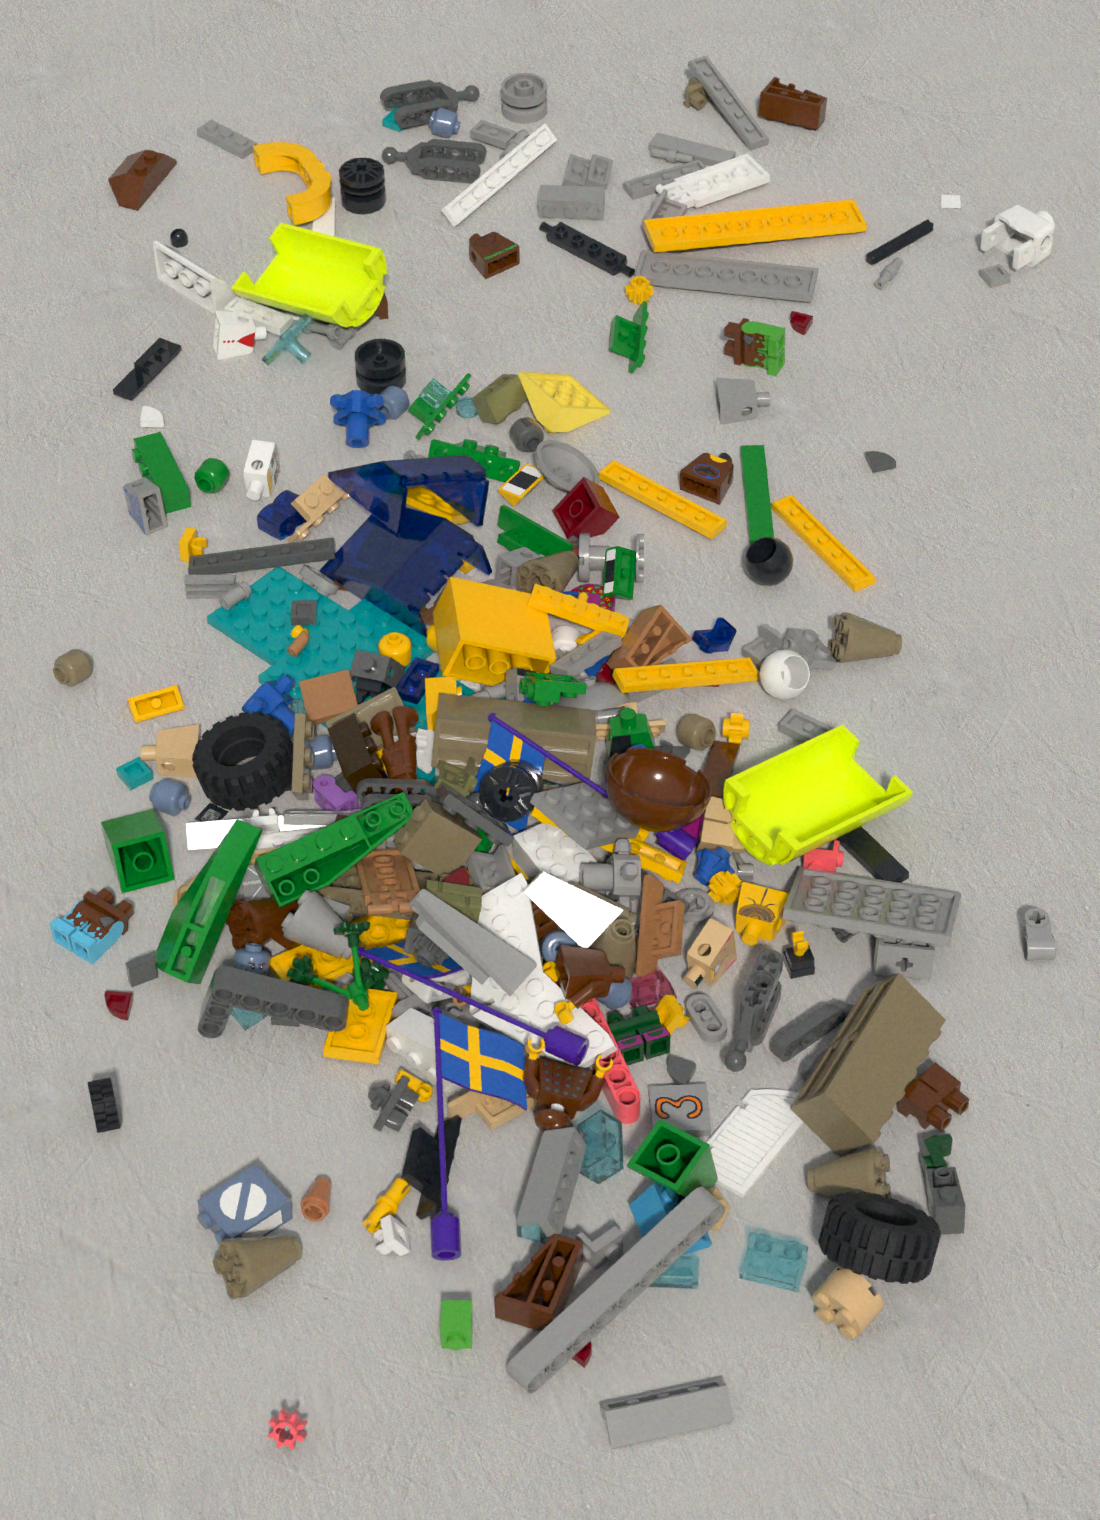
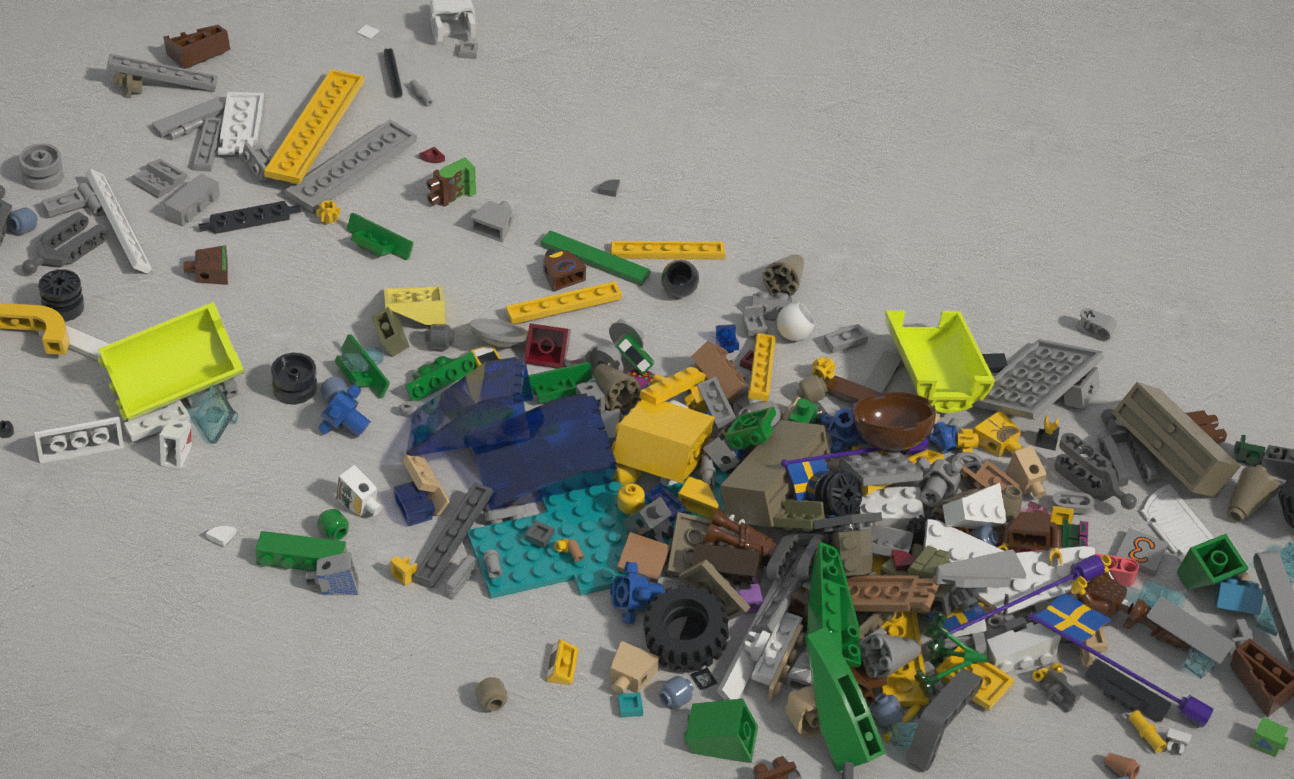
camera: 65 degrees left, 0 degrees up
(147, 368) = (161, 511): black bracket -> none
(680, 1070) = (1108, 535): dark grey tile -> none

